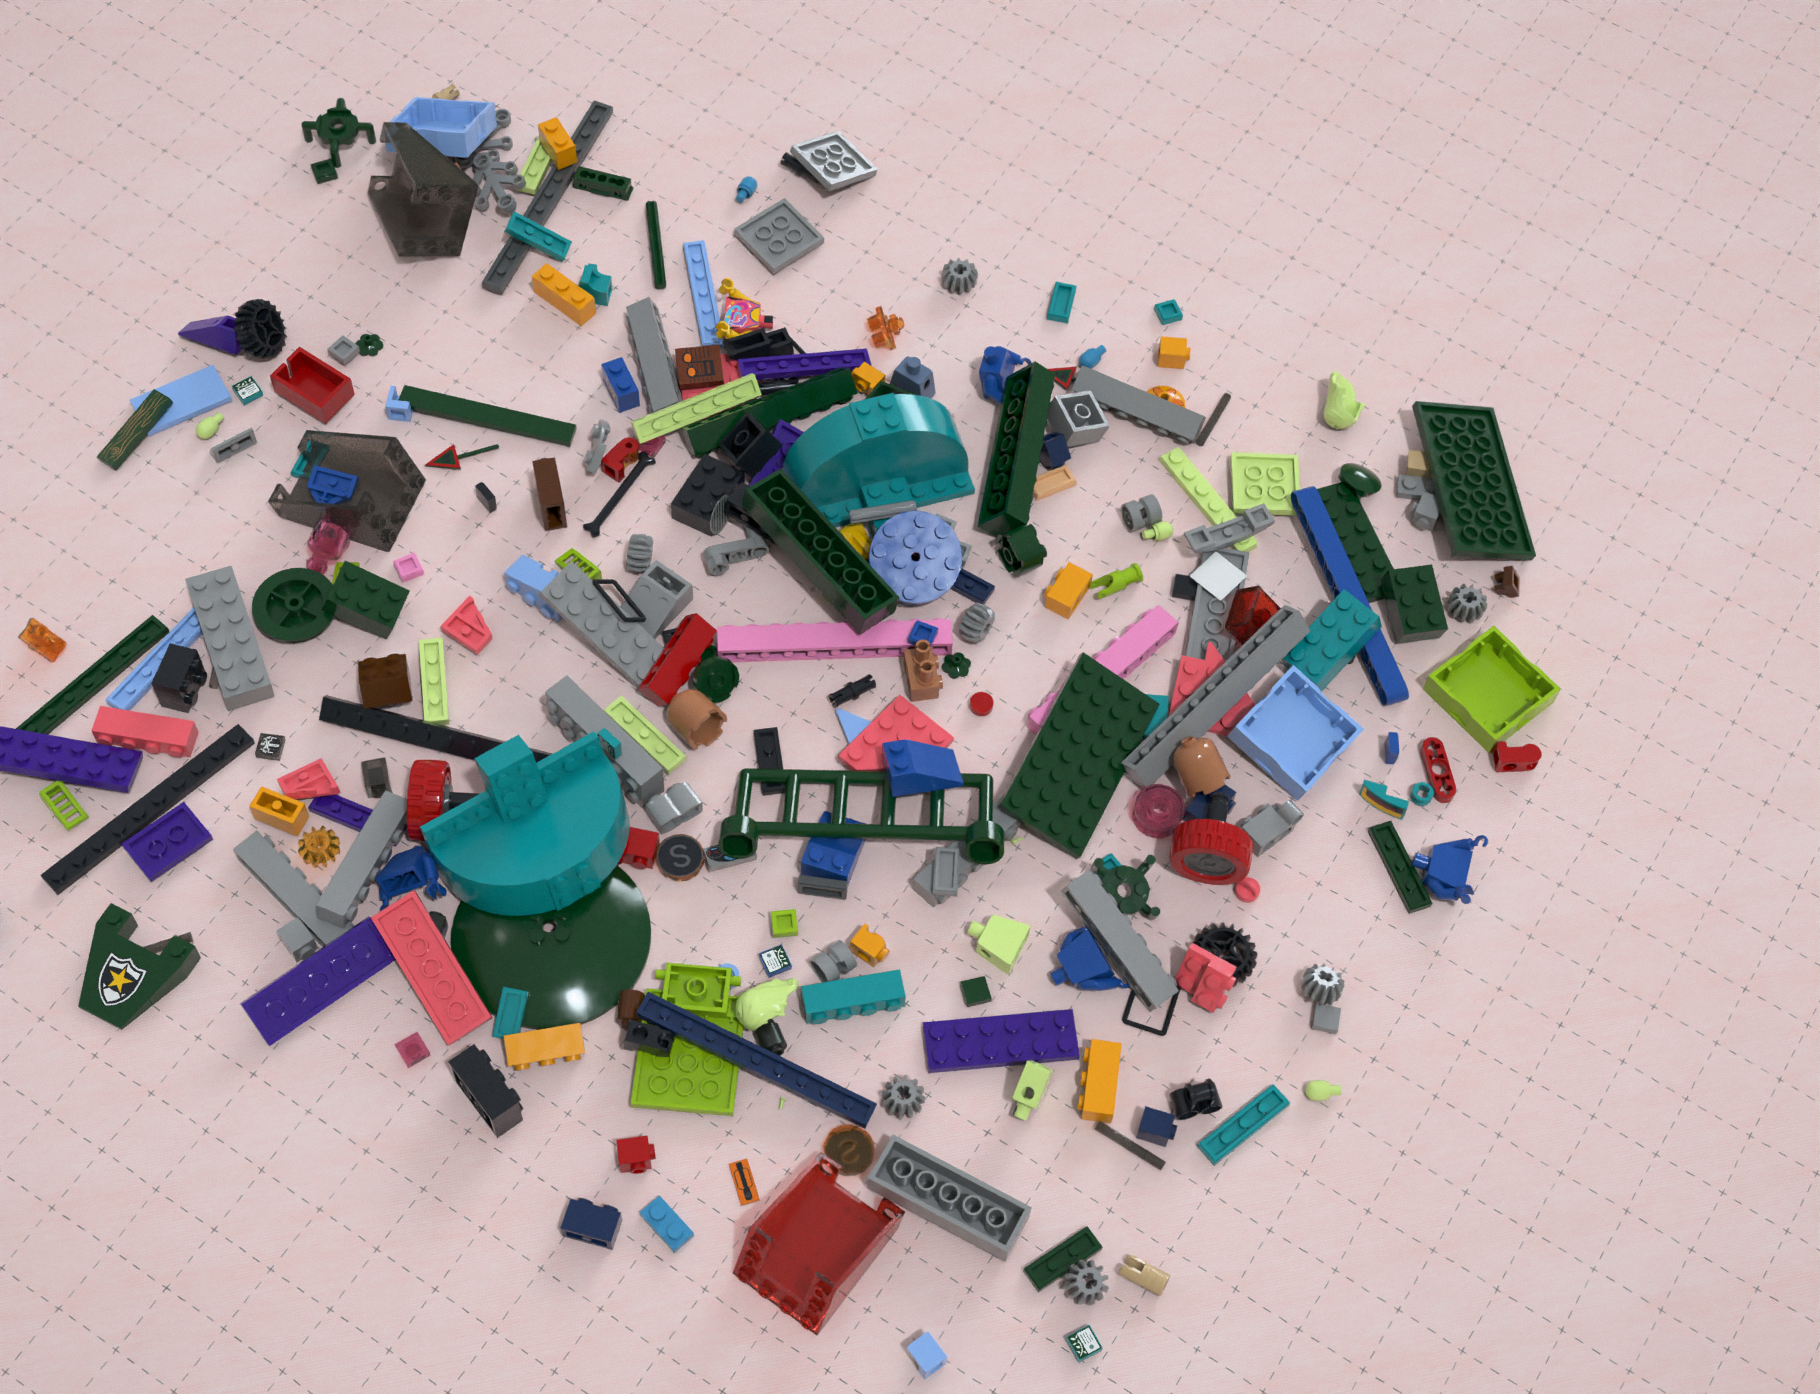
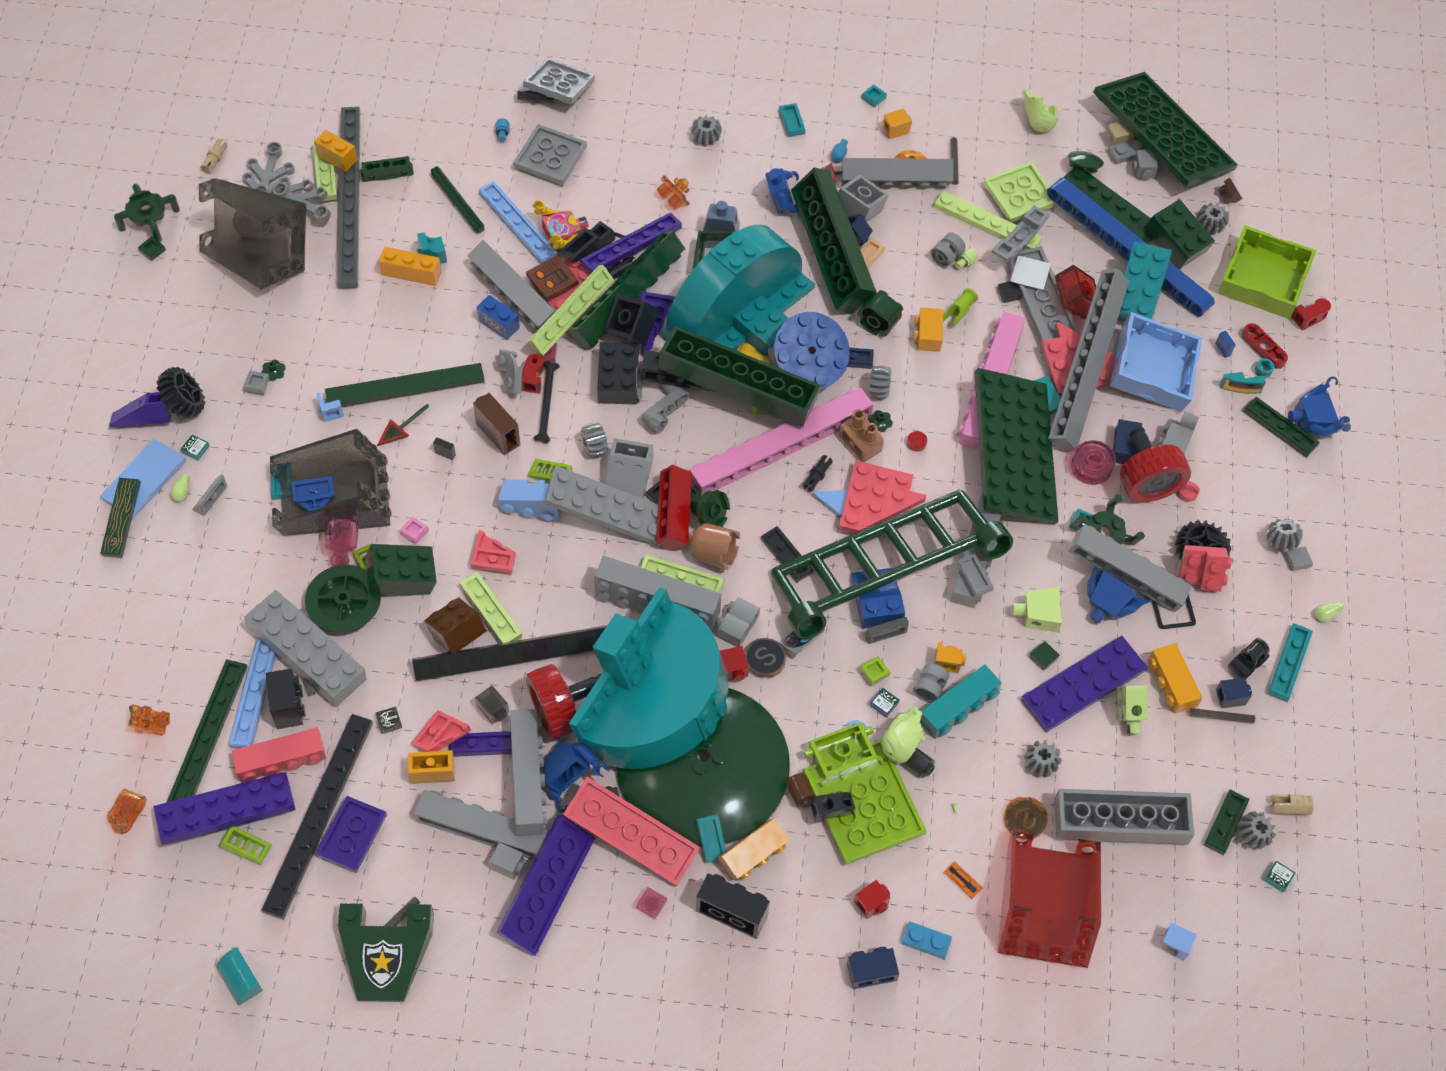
camera: 25 degrees left, 0 degrees up
(313, 385) = (250, 419): red piece -> none
(328, 845) = (472, 774): clear yellow gear -> none
(449, 125) = (246, 165): light blue tile -> none
(538, 236) = (363, 229): teal plate -> none
(610, 743) = (674, 591): teal tile -> none
(641, 618) = (627, 488): black piece -> none
(756, 1060) = (920, 782): dark blue plate -> none
(867, 378) = (687, 234): light orange brick -> none
(881, 511) = (764, 327): light grey axle -> none
(919, 767) = (907, 507): blue slope -> none
(922, 631) = (847, 406): blue tile -> none
(1199, 766) = (1108, 415): nougat cylinder -> none

